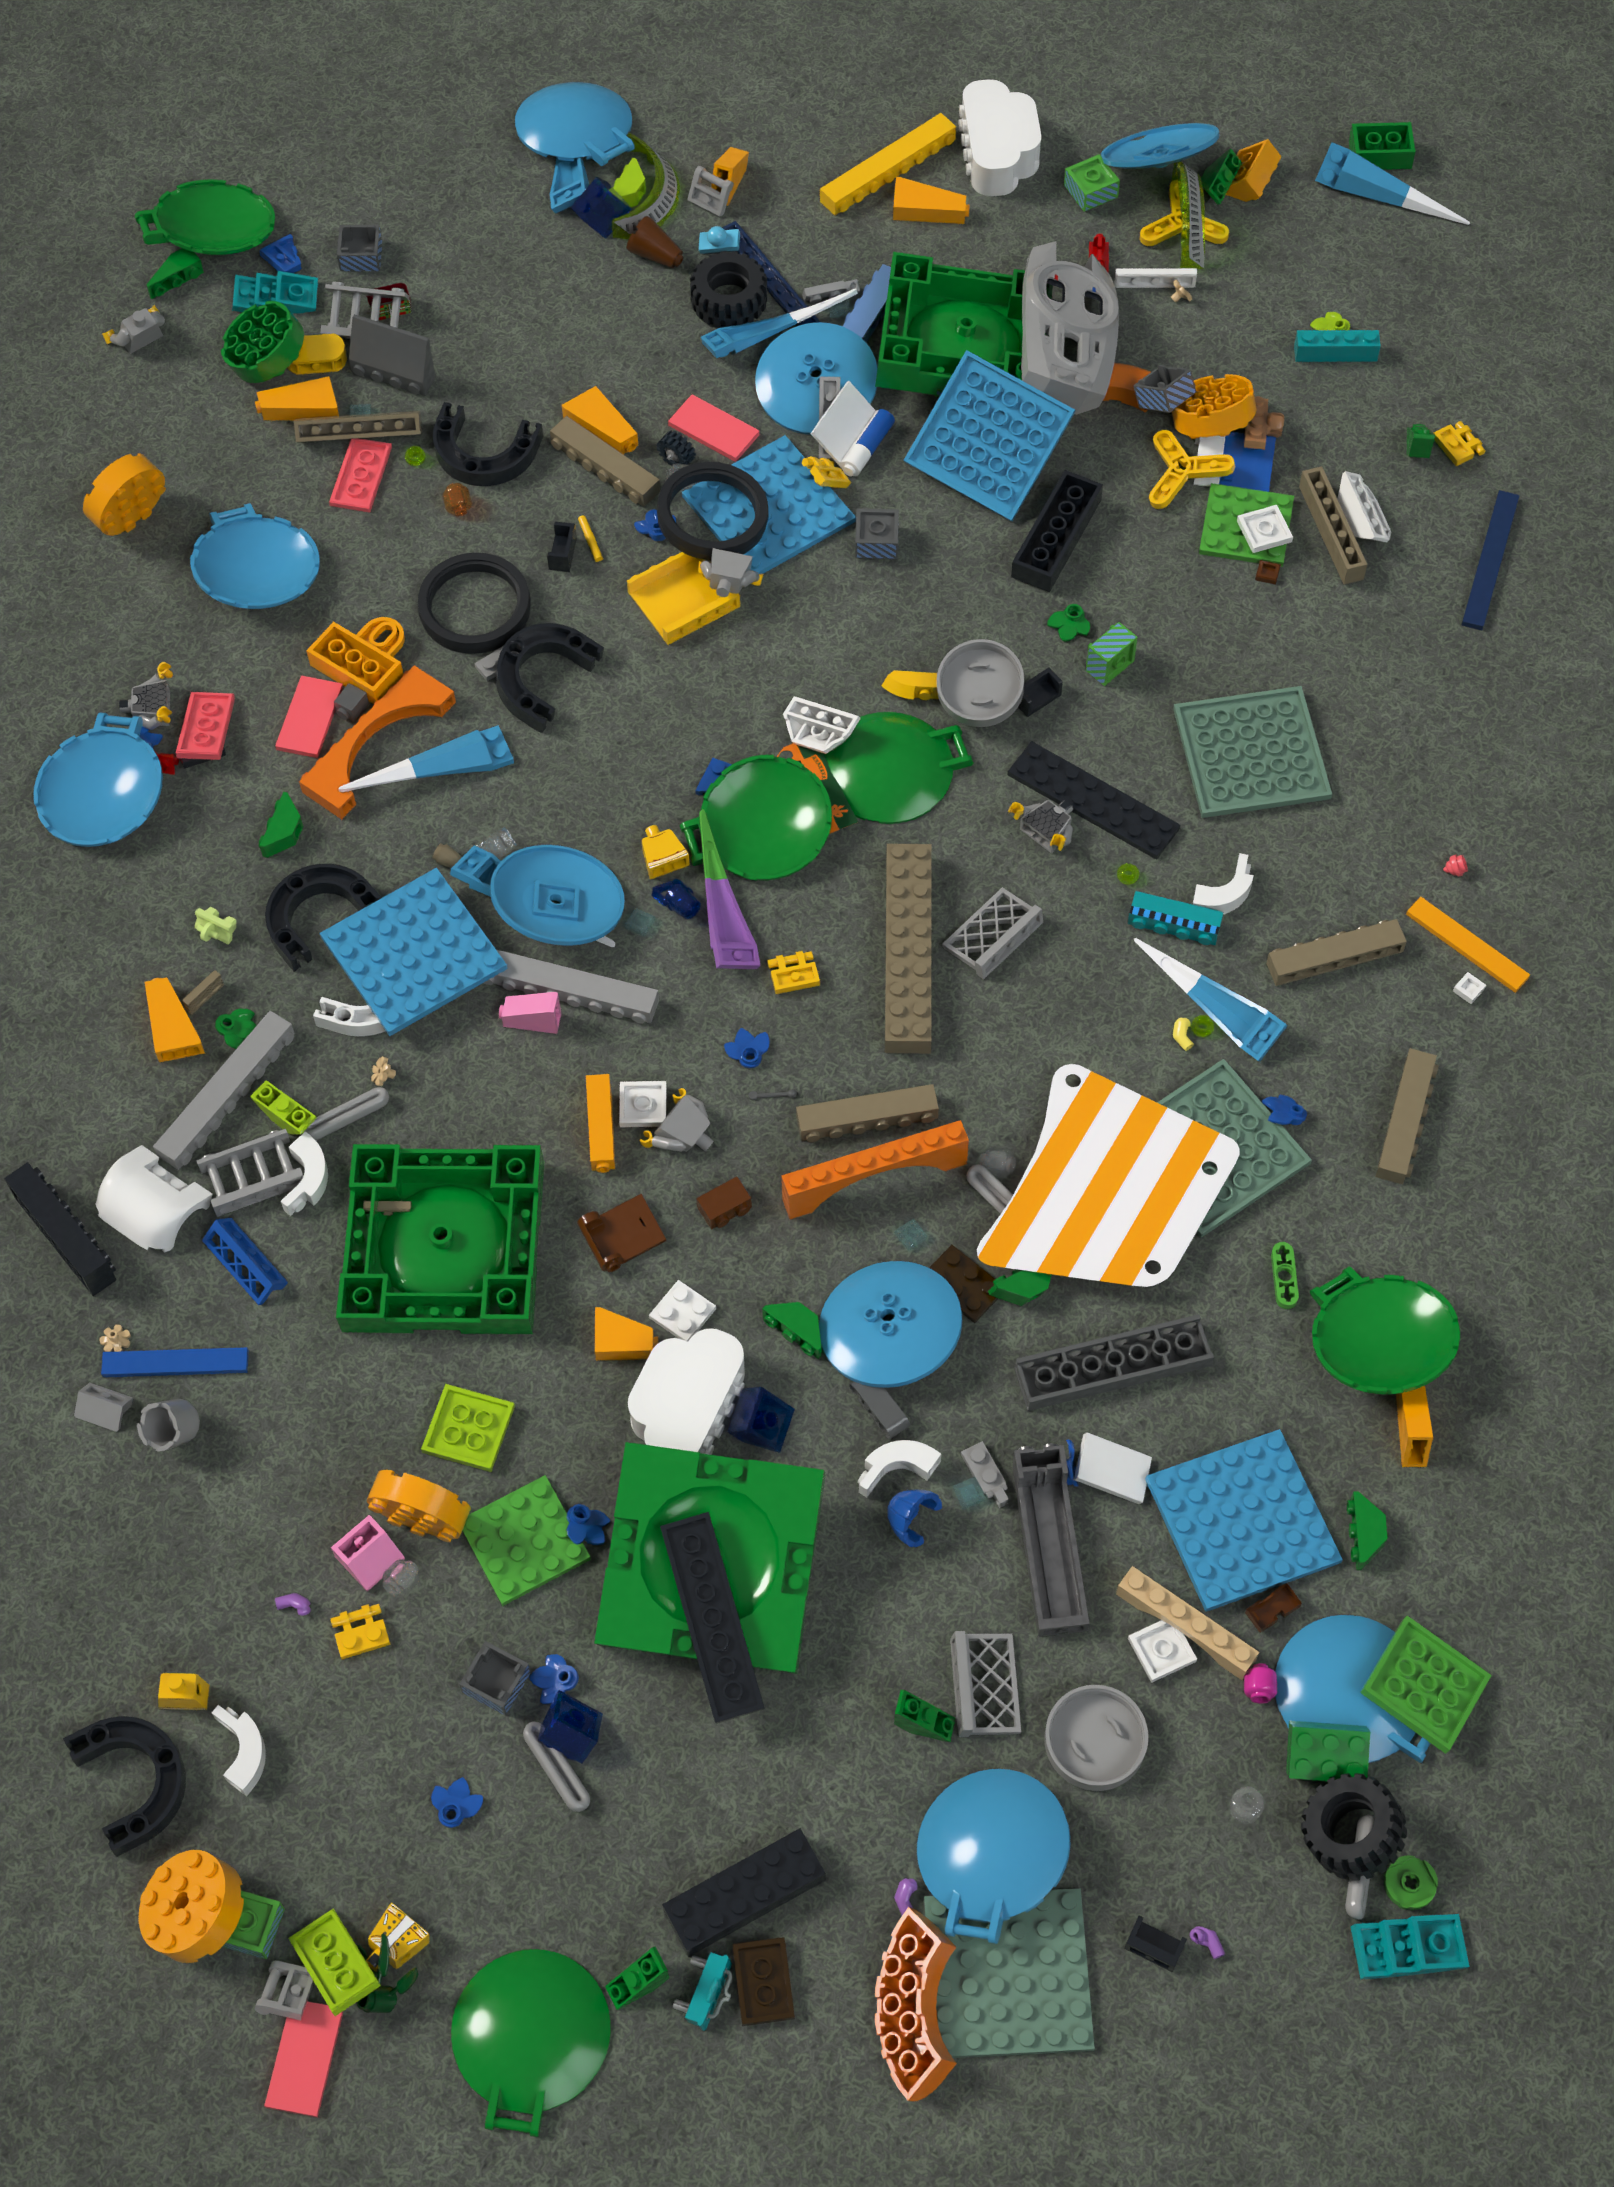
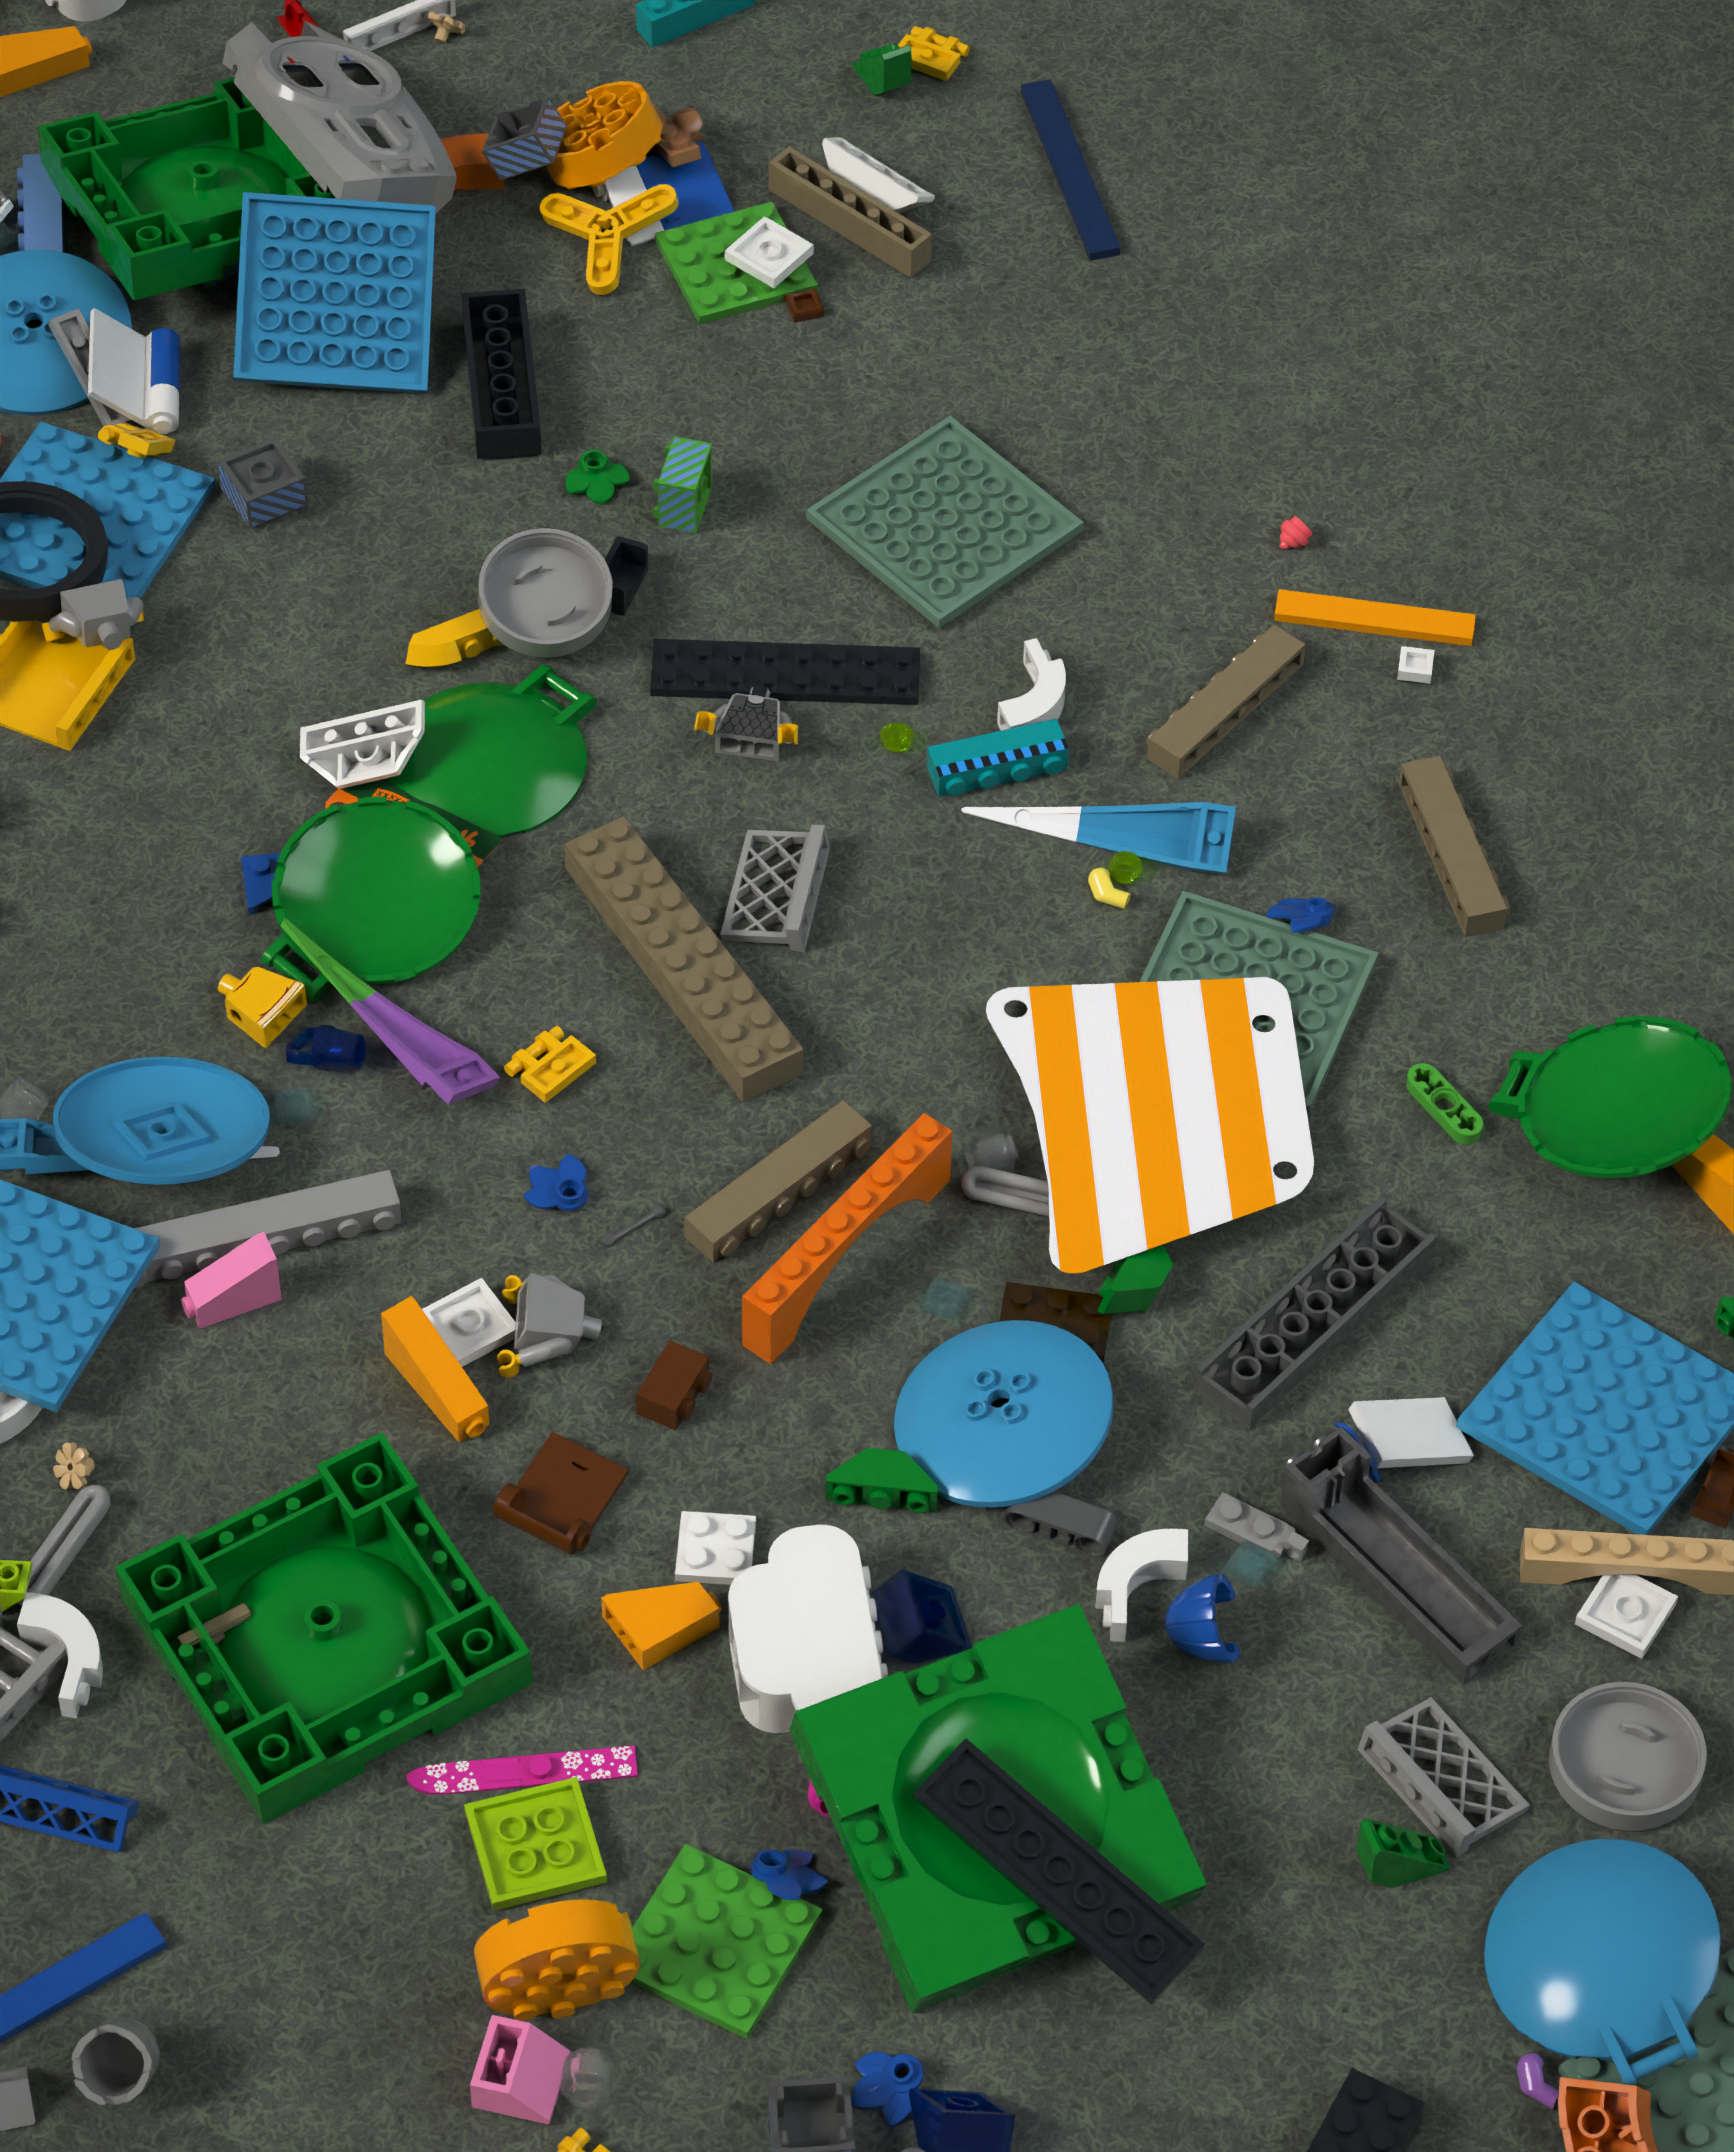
camera: 35 degrees left, 10 degrees down
(495, 1382) = (524, 1771): none -> dark pink piece

